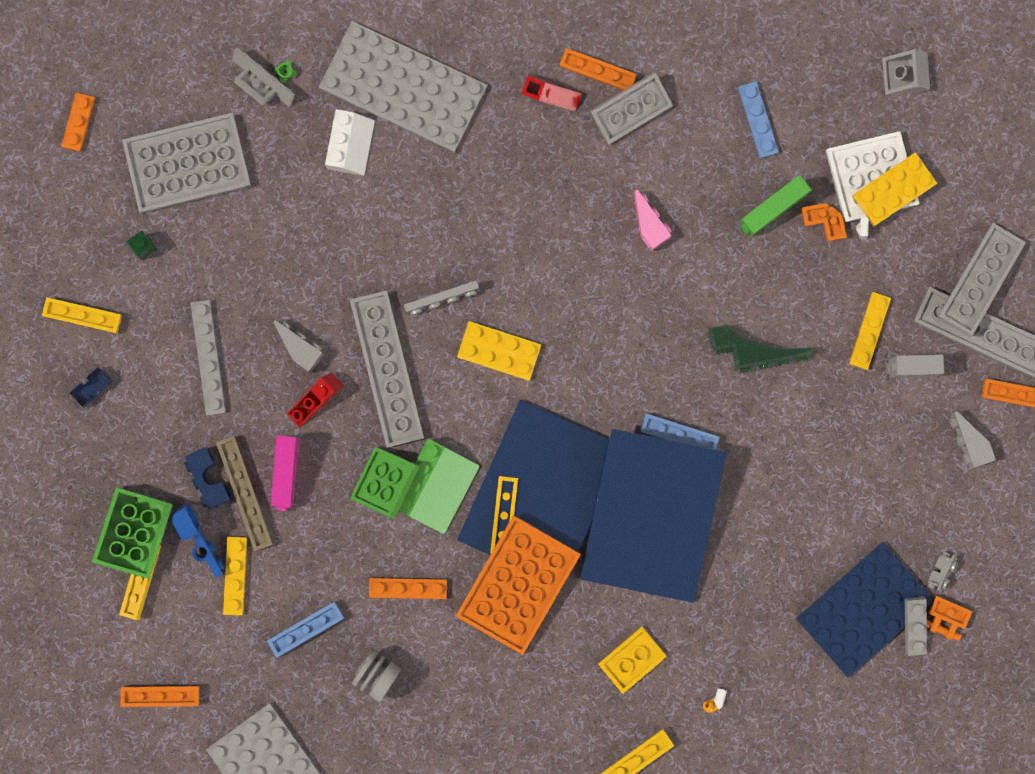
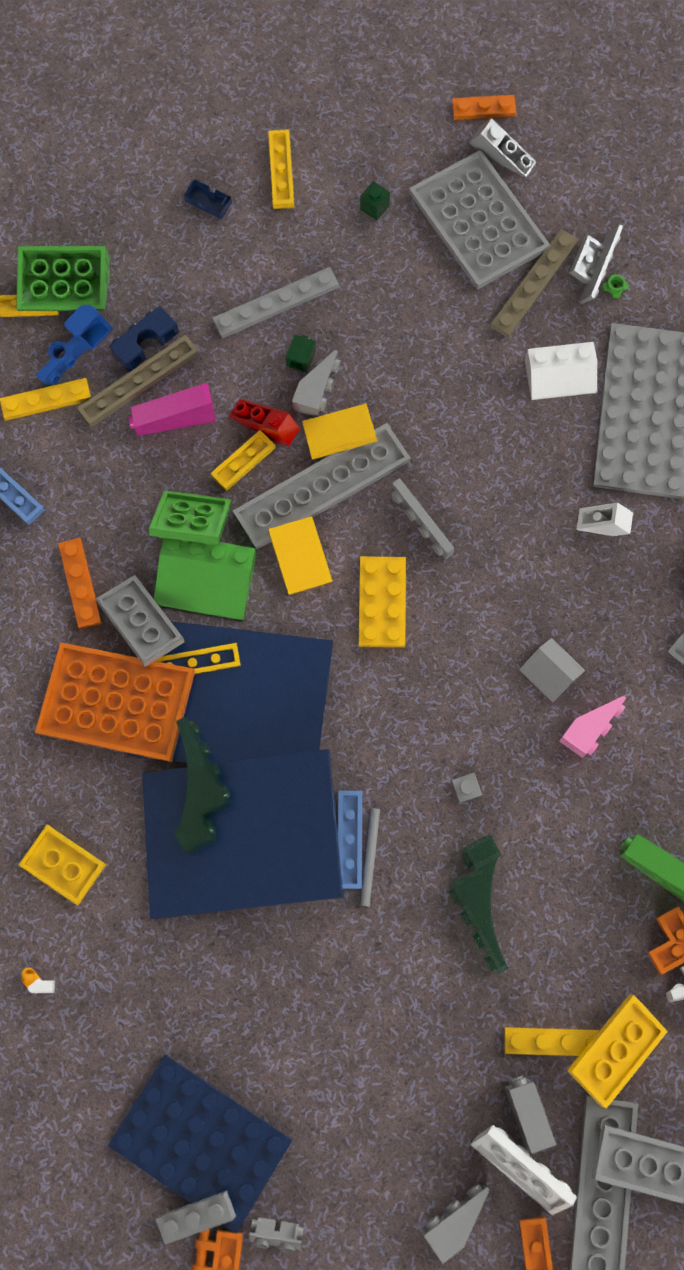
camera: 75 degrees right, 10 degrees down
(126, 121) = (502, 148): none -> light grey slope
(261, 136) = (534, 283): none -> dark tan plate
(263, 350) = (300, 353): none -> dark green brick
(344, 426) = (243, 460): none -> yellow plate
(345, 340) = (339, 431): none -> yellow tile
(441, 404) = (300, 555): none -> yellow tile
(457, 547) = (140, 620): none -> light grey tile
(487, 153) = (605, 519): none -> white slope
(595, 237) = (551, 669): none -> light grey slope
(612, 532) = (204, 792): none -> clear green arch
(666, 333) = (466, 788): none -> light grey plate
(696, 423) = (370, 857): none -> light grey bar
(890, 288) = (617, 1051): none -> yellow plate
(951, 383) = (523, 1170): none -> white plate

